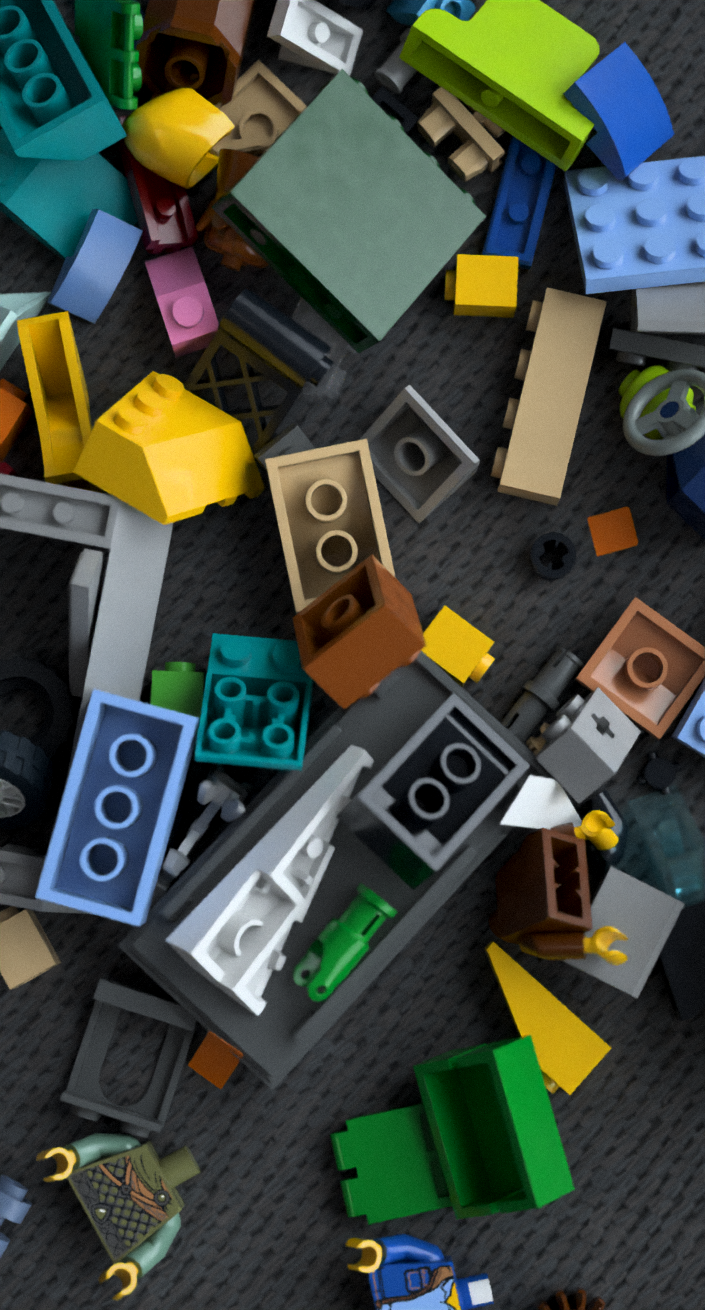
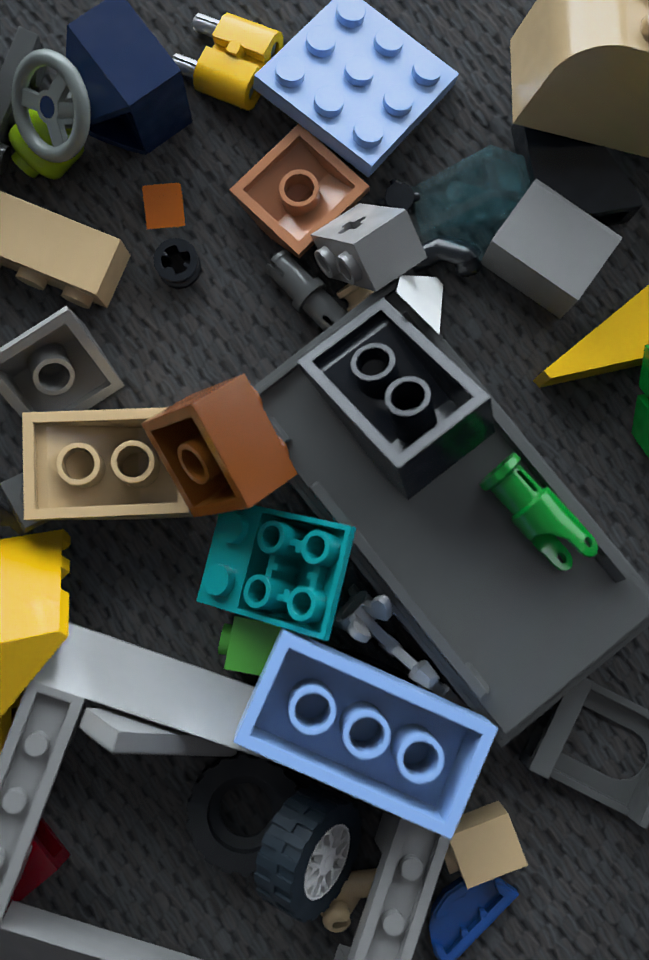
camera: 85 degrees left, 0 degrees up
(215, 1060) = (621, 664): orange sticker -> none
(246, 918) = (498, 610): white wedge -> none
(457, 647) = (249, 354): yellow brick -> none
(547, 894) = (509, 309): reddish brown torso -> none

